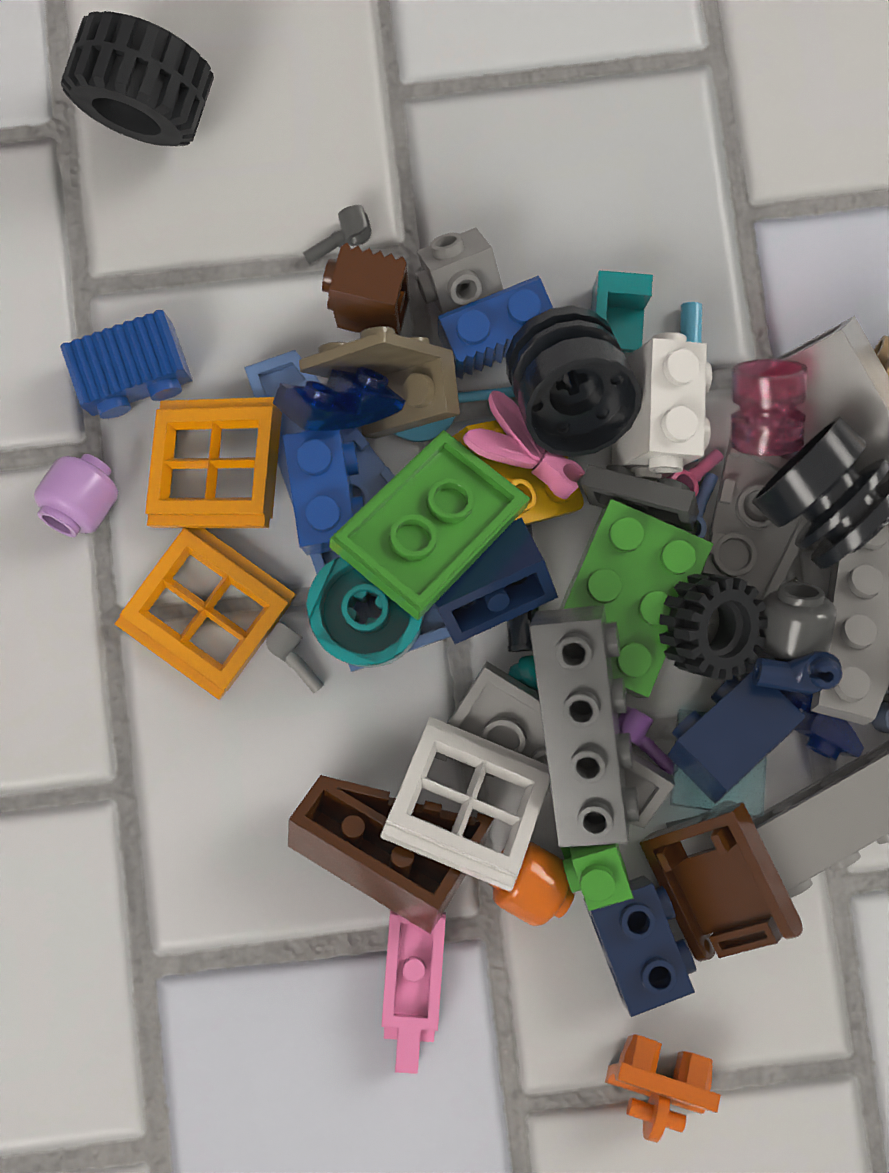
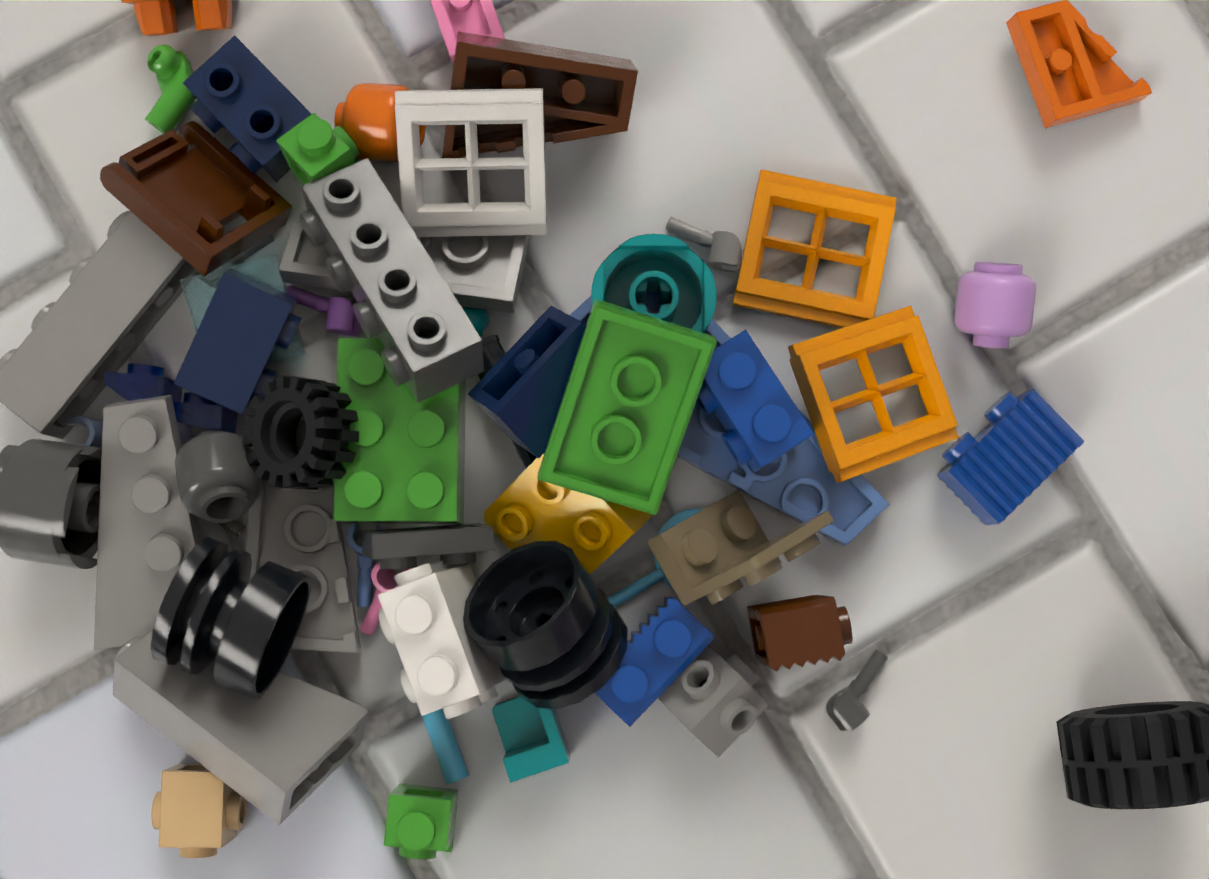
camera: 155 degrees right, 0 degrees up
(342, 403) = (766, 496): clear blue slope -> none
(520, 450) = (572, 530): bright pink piece -> none
(697, 1009) = (171, 71): none -> bright green arm
(739, 273) = (421, 820): none -> bright green brick
(768, 406) = (331, 687): clear pink wheel -> none
(802, 675) = (188, 423): dark blue arm -> none

